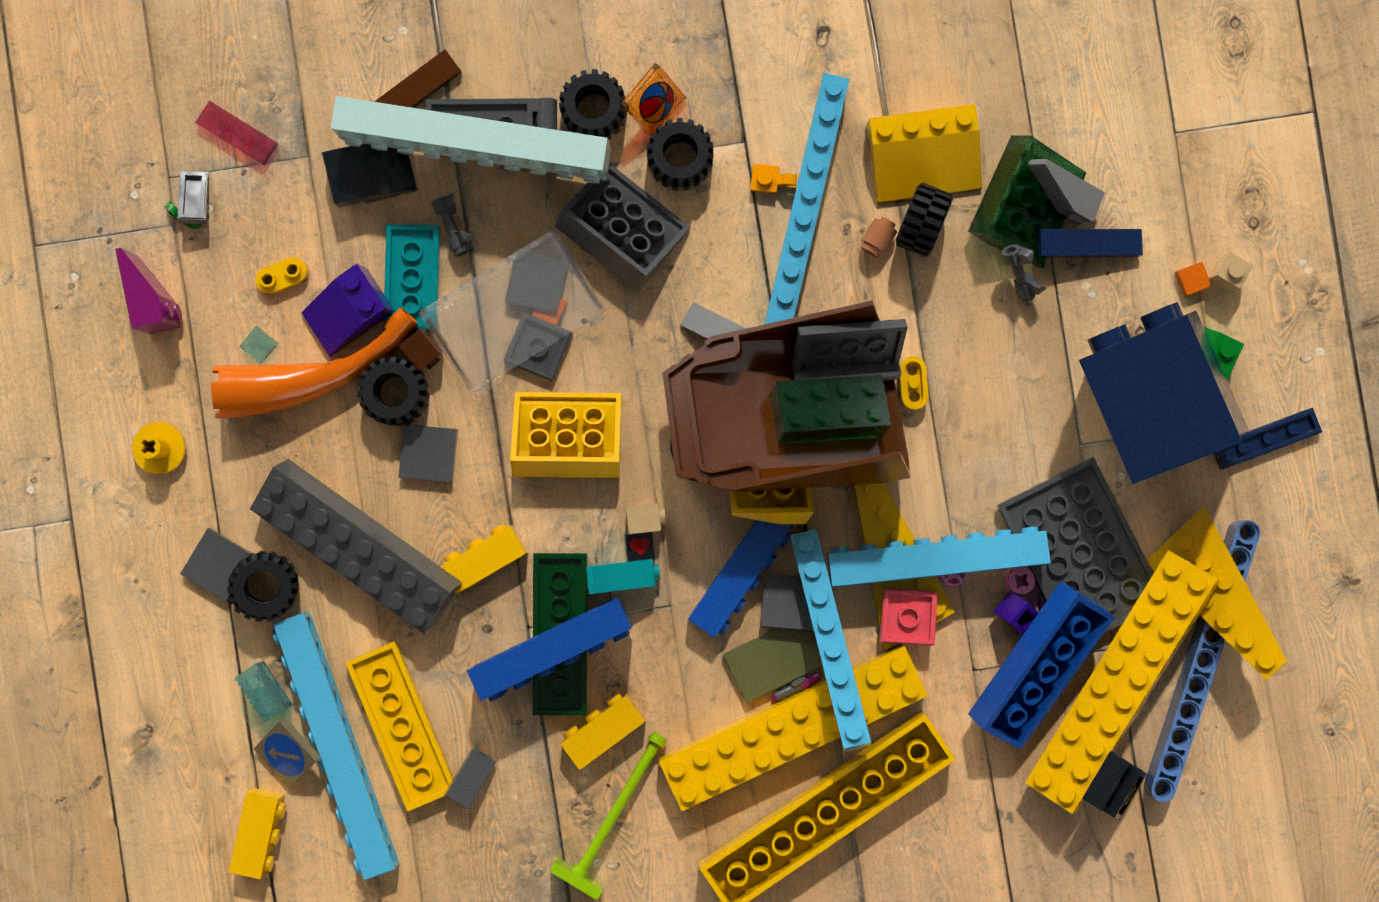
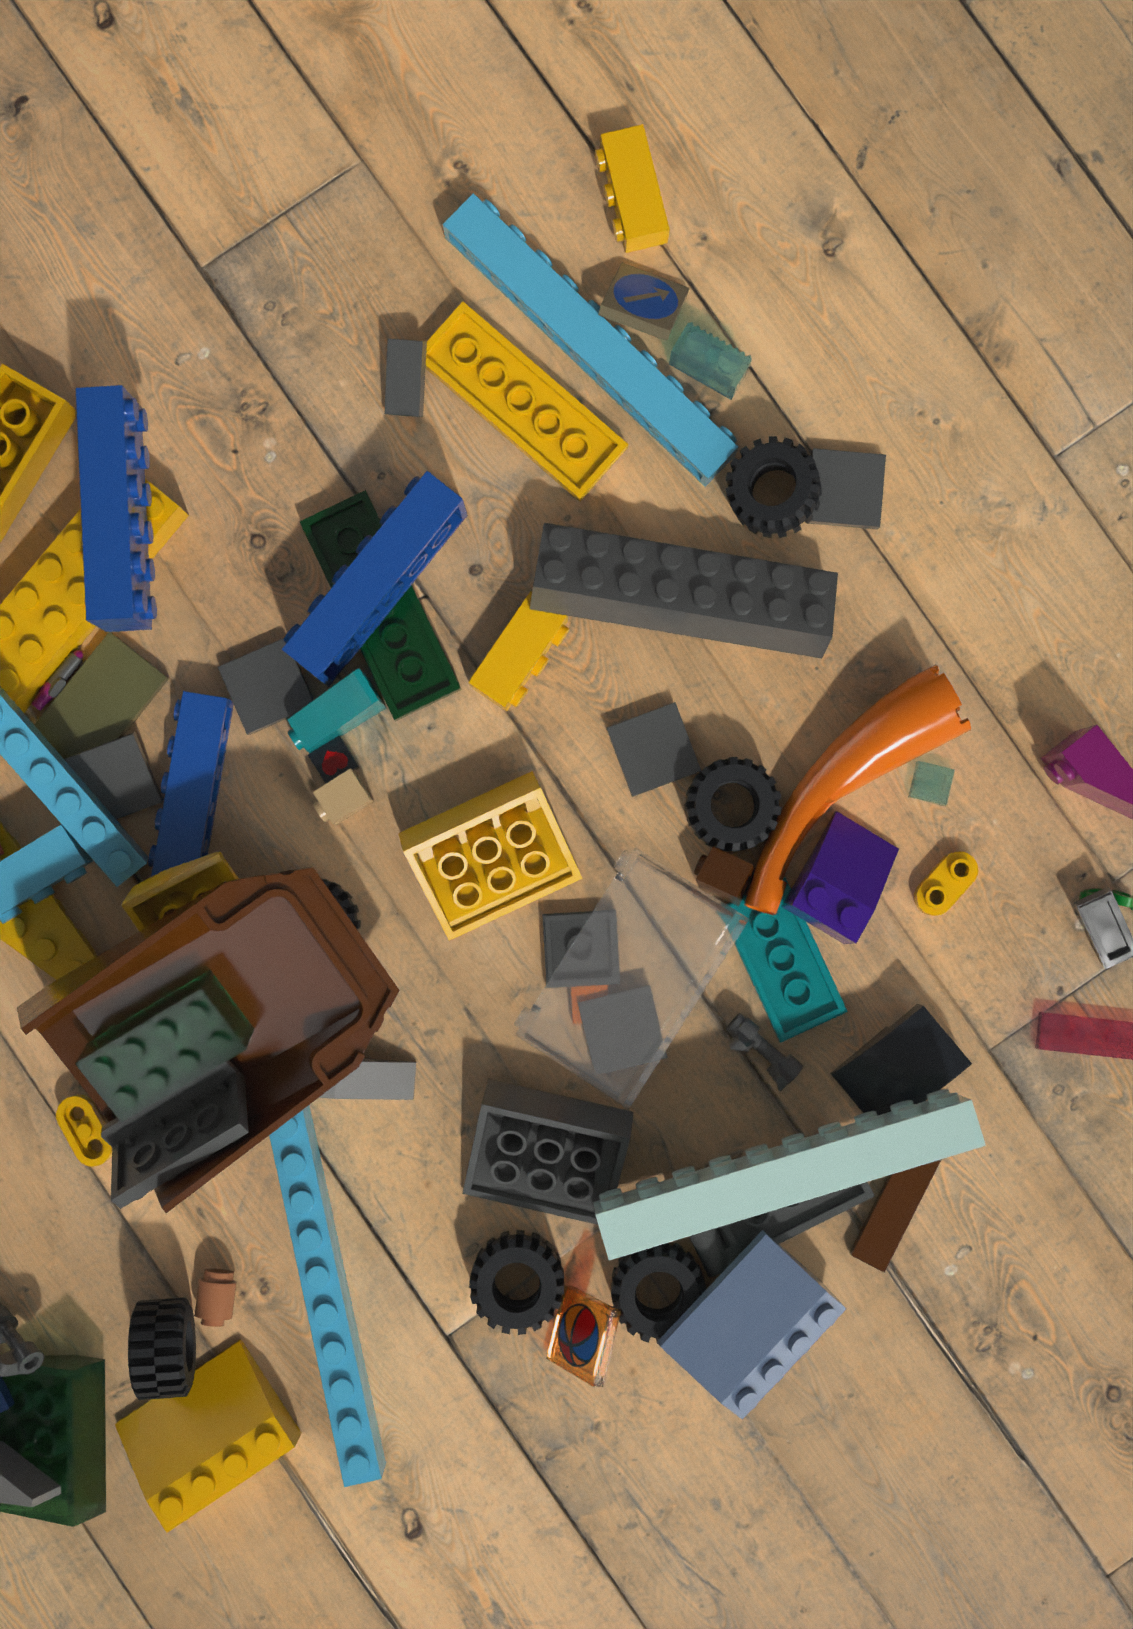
camera: 150 degrees right, 0 degrees up
(158, 448) = (990, 595): yellow piece -> none
(542, 56) = (752, 1325): none -> sand blue slope
(578, 874) = (214, 322): lime tile -> none
(602, 730) = (270, 512): yellow brick -> none
(660, 617) = (265, 687): none -> dark grey tile
(697, 775) = (115, 509): none -> blue brick
(767, 179) = (393, 1303): light orange plate -> none

